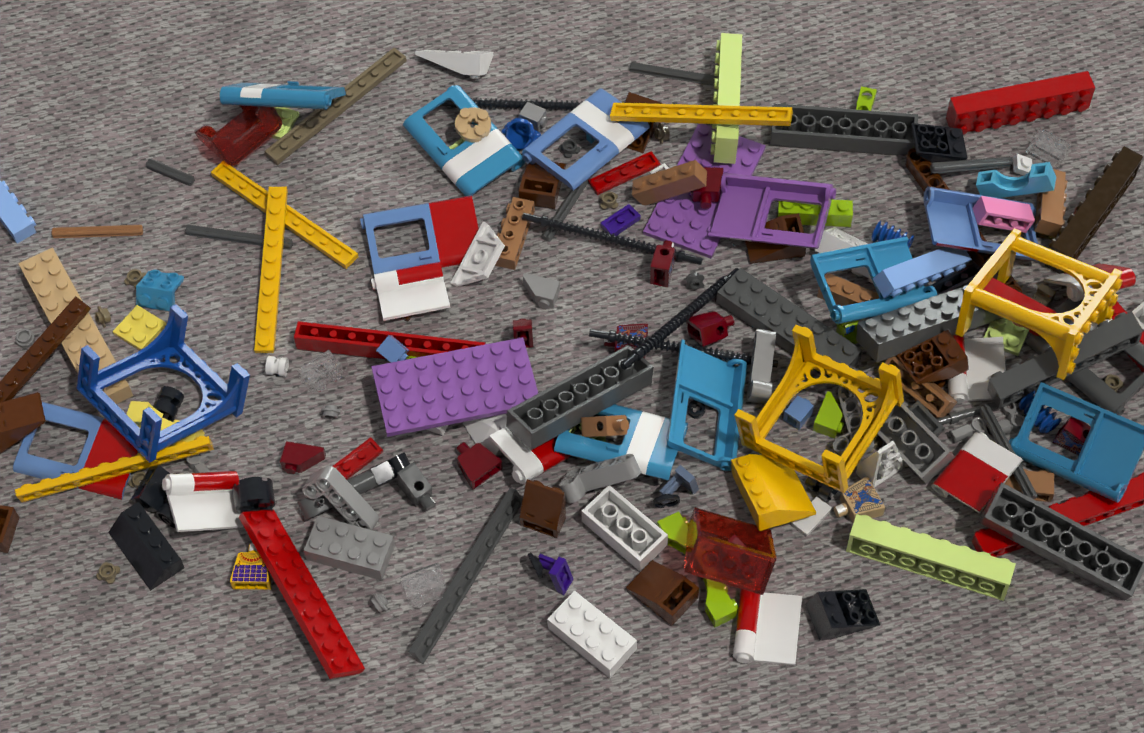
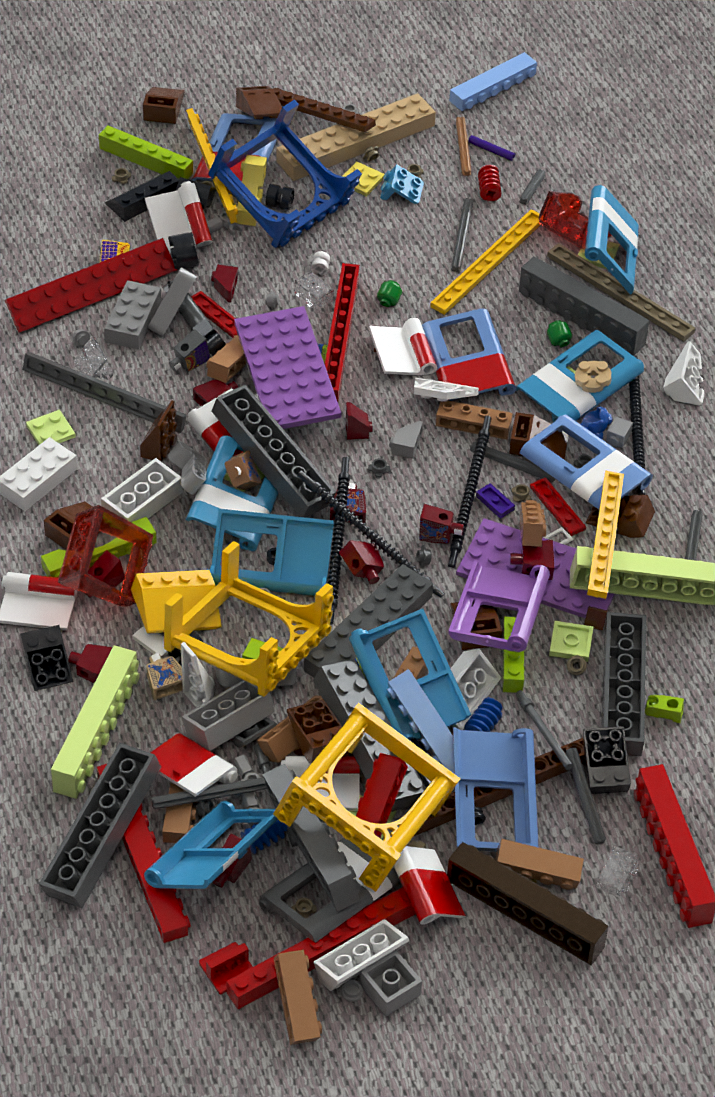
camera: 85 degrees right, 10 degrees down
(78, 544) = (144, 153): none -> lime brick
(103, 206) = (491, 147): none -> dark purple piece
(166, 208) = (489, 183): none -> red piece
(271, 270) = (425, 253): yellow plate -> none
(329, 302) = (389, 293): none -> green head
(365, 132) = (583, 305): none -> dark grey brick
(393, 349) = (325, 323): medium blue brick -> none
(396, 157) = (559, 333): none -> green head
(430, 446) = (227, 361): none -> medium nougat brick
(518, 628) = (51, 425): none -> yellowish green plate
(559, 571) = (98, 445): dark purple piece -> none
(575, 313) = (379, 467): none -> dark grey plate
(681, 477) = (187, 534): sand blue piece -> none
(759, 383) = (343, 595): light grey beam -> none
(765, 148) = (595, 617): none -> reddish brown tile
(792, 166) = (571, 640): none -> yellowish green plate
(798, 412) = (267, 628): medium blue brick -> none
(823, 164) = (576, 659): none -> dark tan plate
(848, 565) = (90, 661): none -> dark red torso
(870, 205) = (528, 707): none -> dark grey bar
(1003, 214) = (511, 808): bright pink brick -> none
(1021, 164) = (594, 850): white plate -> none
(1039, 179) = (555, 824): medium azure arch -> none

